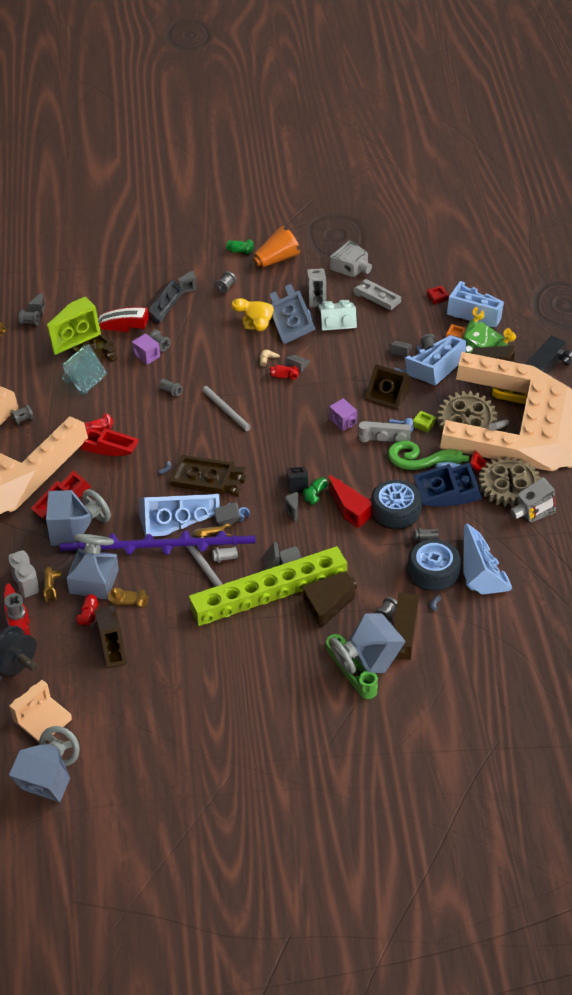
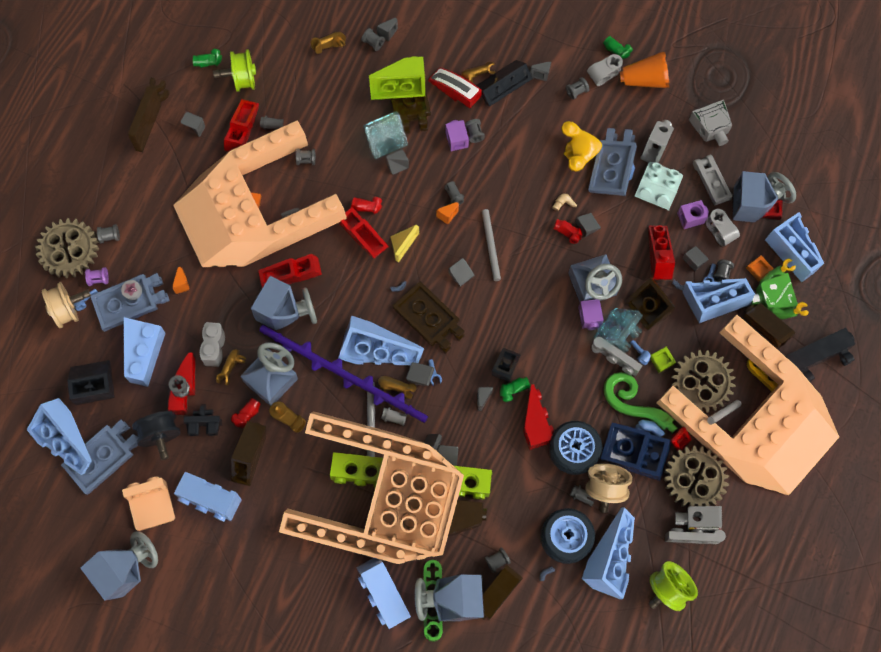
camera: 25 degrees right, 25 degrees up
(52, 631) = (201, 419): none -> black hips
(95, 681) = (207, 497): none -> light blue wedge
(106, 385) = (397, 161): none -> dark grey slope
(141, 299) = (473, 72): none -> pearl gold piece
(148, 435) = (403, 240): none -> light yellow slope
(173, 400) = (448, 212): none -> orange slope
(213, 435) = (461, 272): none -> dark grey slope
(240, 261) = (605, 69): none -> light grey piece
(282, 591) = (410, 501): none -> light nougat wedge
(303, 674) = (382, 592): none -> light blue wedge
(331, 386) = (595, 279): none -> piece
(371, 353) = (661, 253): none -> red slope
(374, 408) = (618, 327): none -> clear light blue plate
(378, 320) = (687, 219): none -> medium lavender brick
(408, 319) = (722, 228): none -> light grey piece
(420, 285) = (756, 194): none -> sand blue piece
(442, 511) = (608, 484): none -> tan wheel
(538, 519) = (695, 536): none -> light grey plate
(547, 554) = (672, 587): none -> lime wheel

